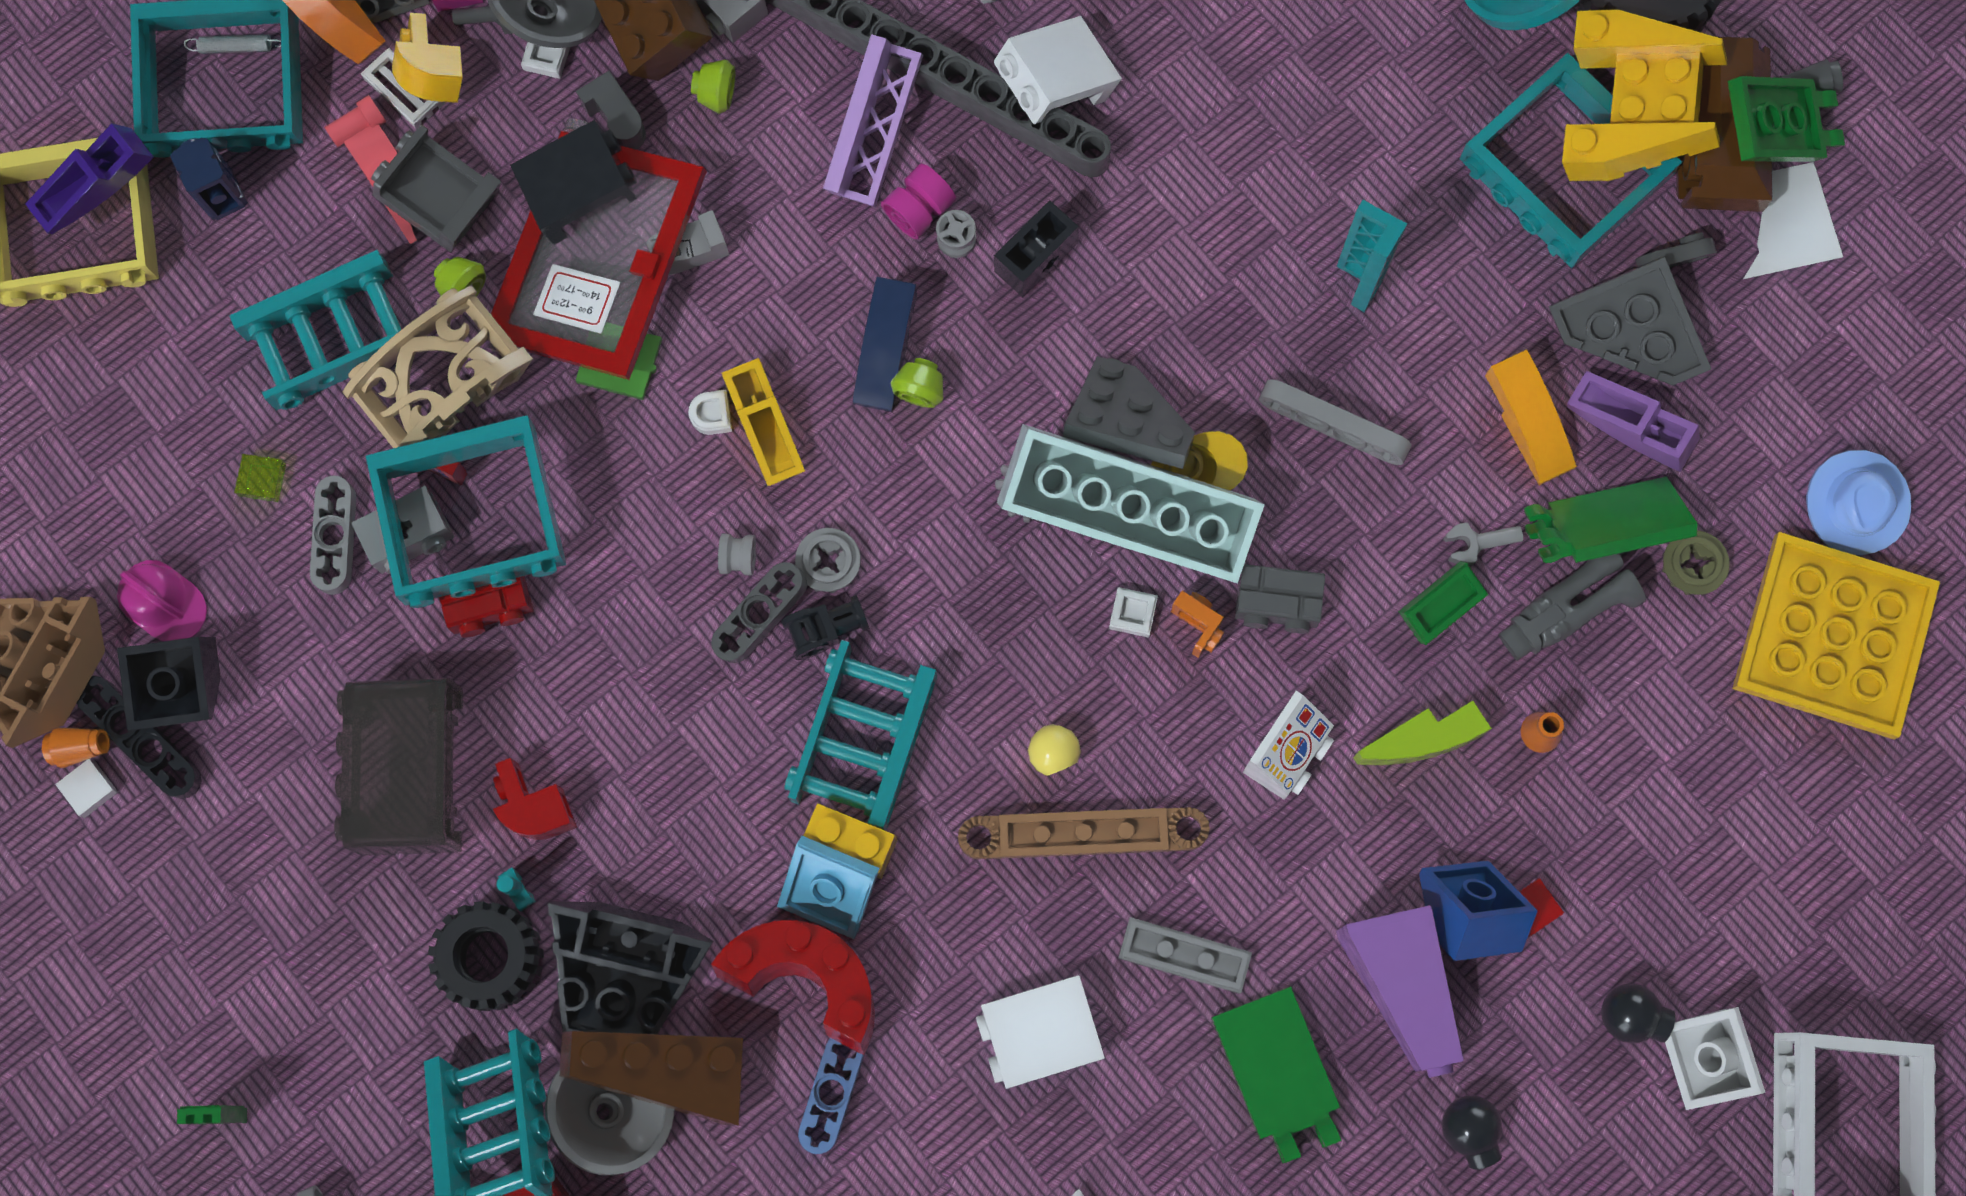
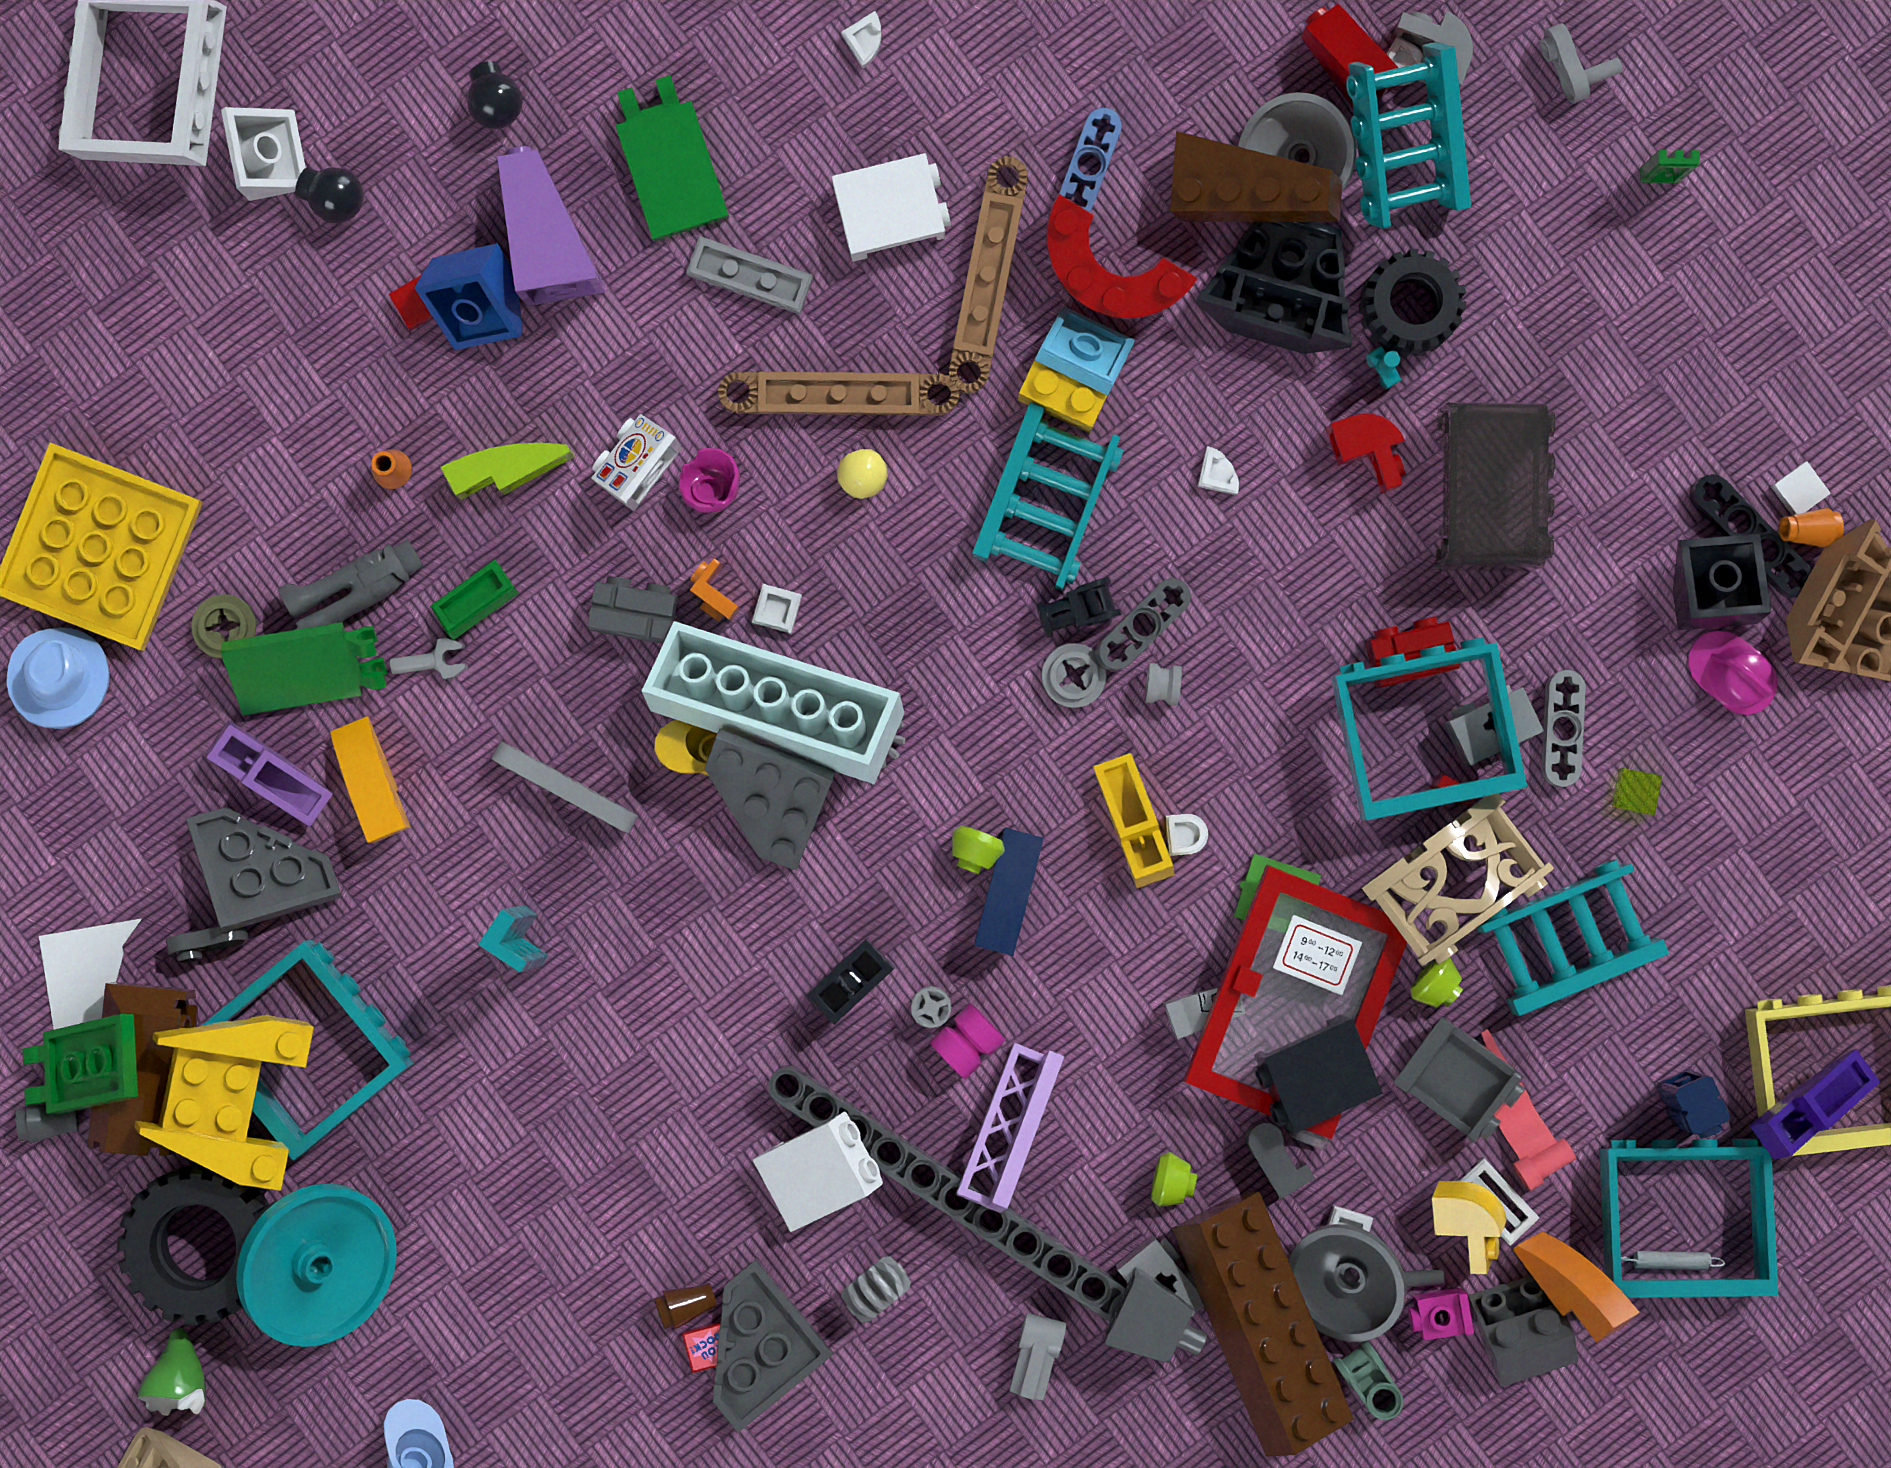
camera: 175 degrees right, 10 degrees up
(687, 773) = (1218, 473): none -> white tile
(933, 968) = (988, 274): none -> medium nougat plate
(1211, 732) = (709, 481): none -> dark pink hair

